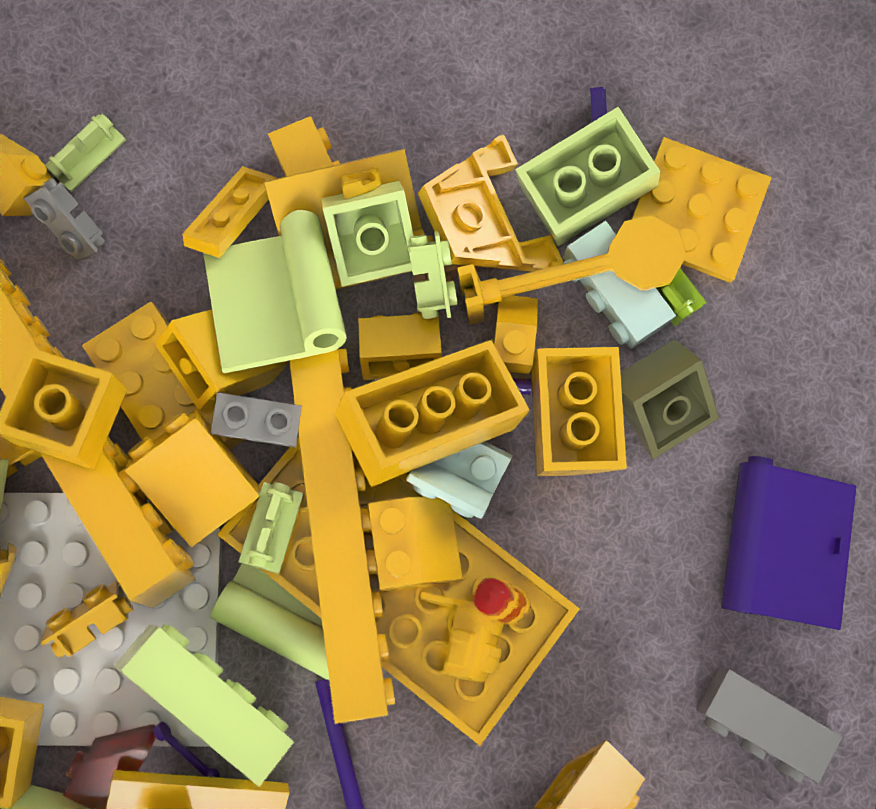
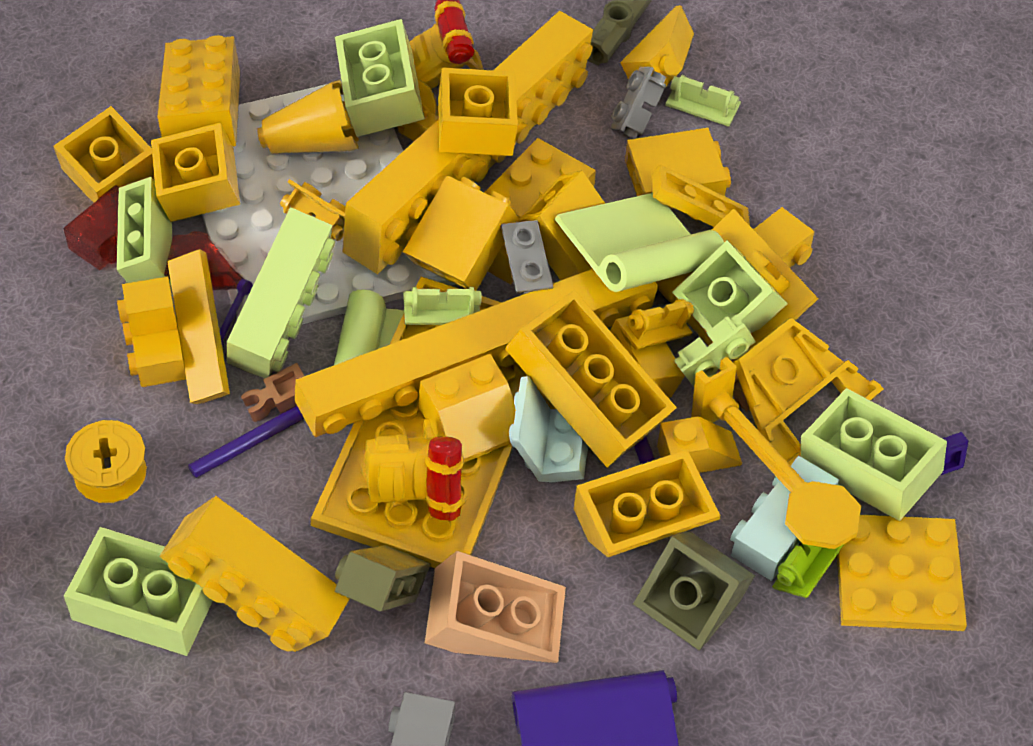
camera: 70 degrees right, 25 degrees down
(160, 209) = (684, 152): none -> yellow brick
(306, 724) = (277, 393): none -> nougat plate
(378, 319) = (657, 324): none -> yellow hinge
(591, 702) = (381, 577): none -> olive brick
(633, 596) = (494, 611): none -> light nougat slope

